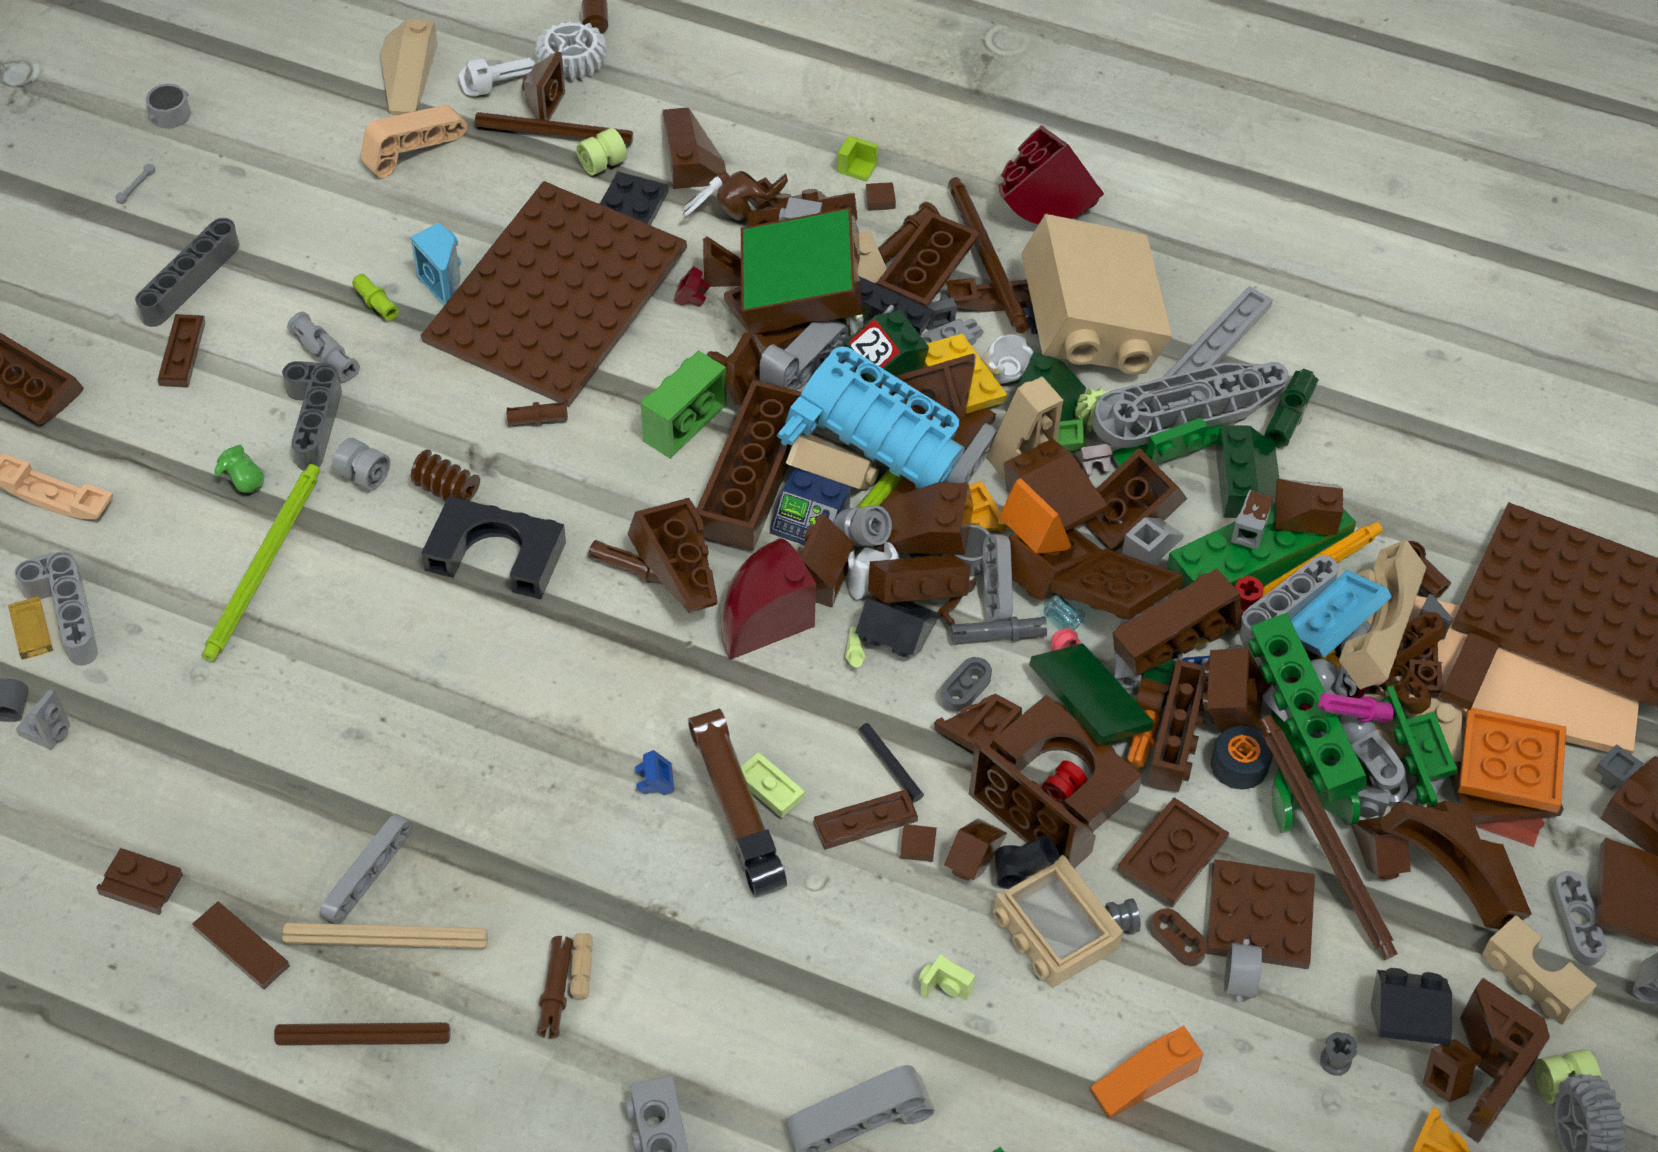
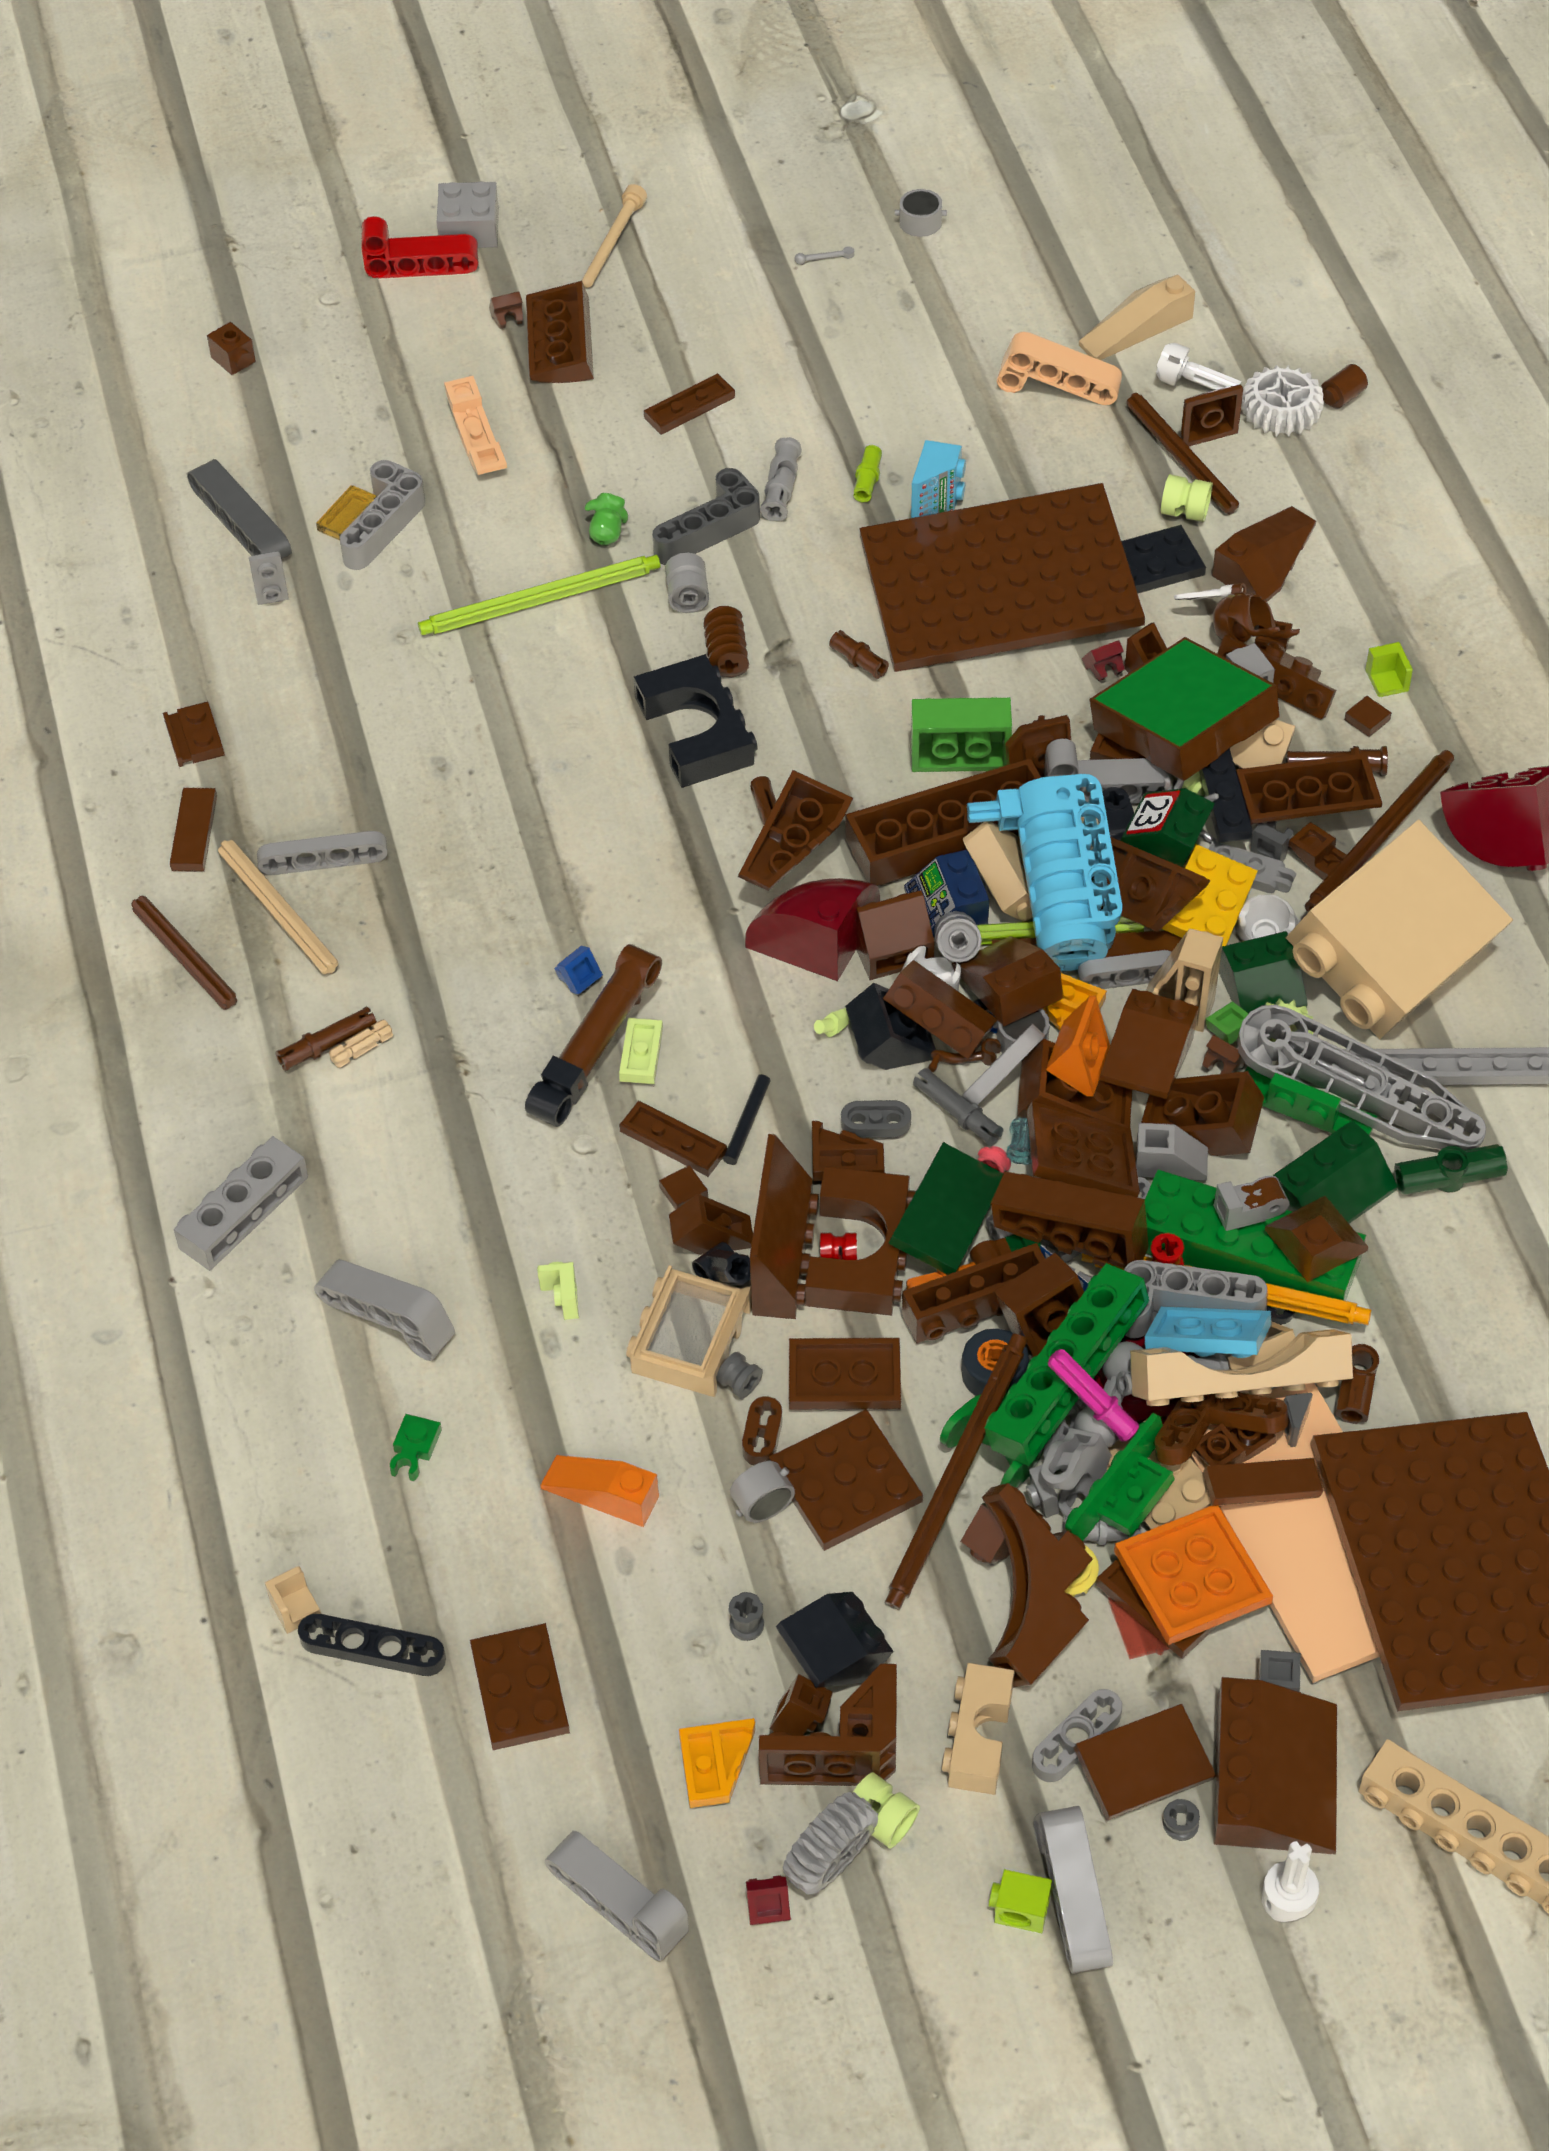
camera: 55 degrees right, 0 degrees up
(187, 272) = (765, 348): dark grey beam -> none

